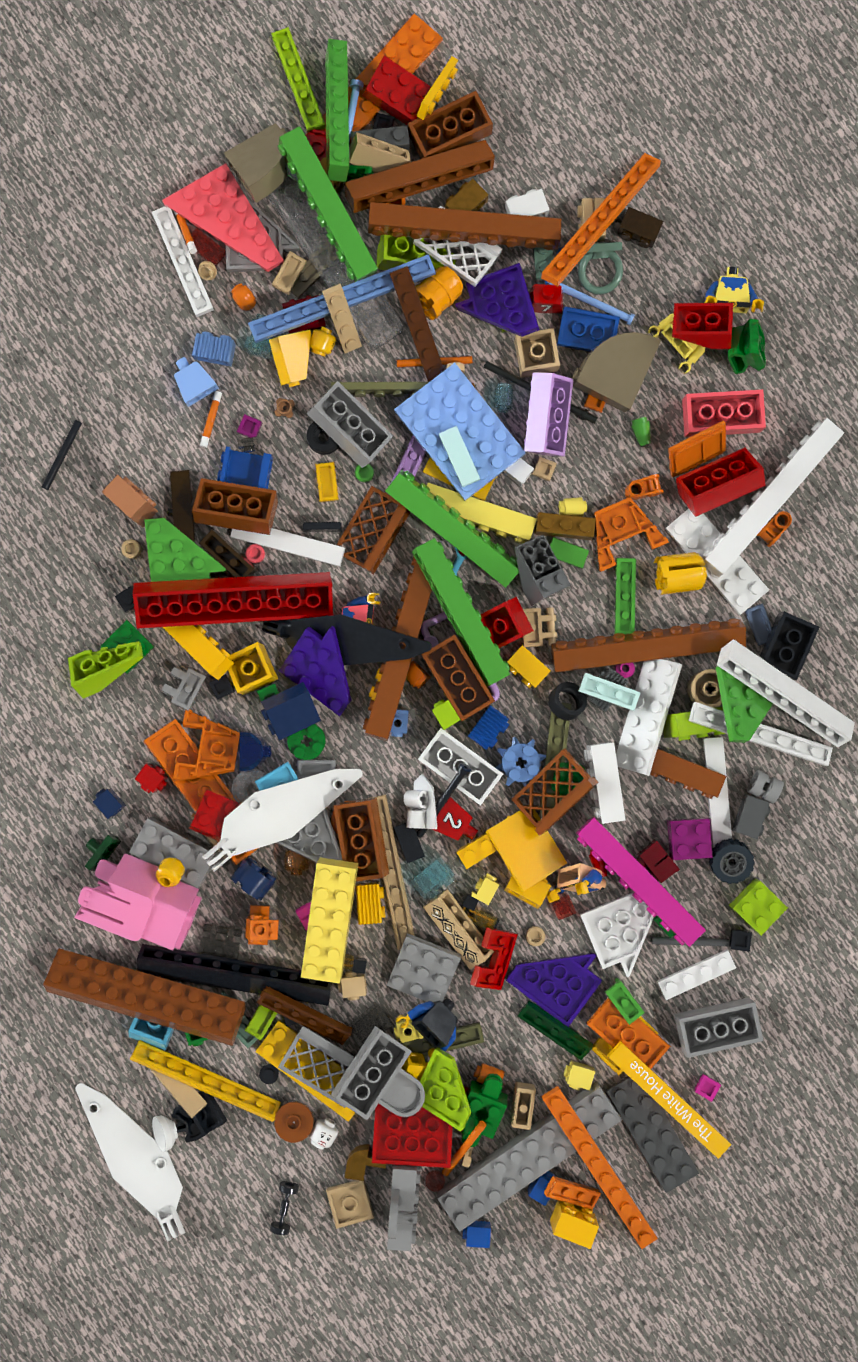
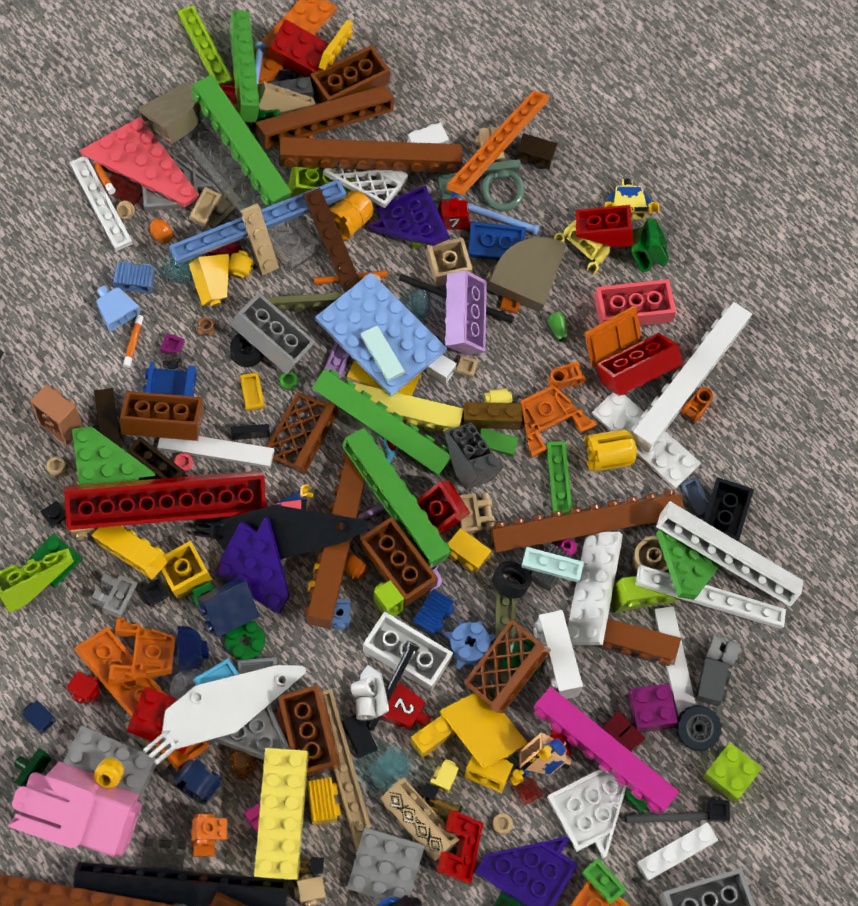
camera: 10 degrees left, 20 degrees down
(470, 197) = (373, 131): pearl gold brick -> none

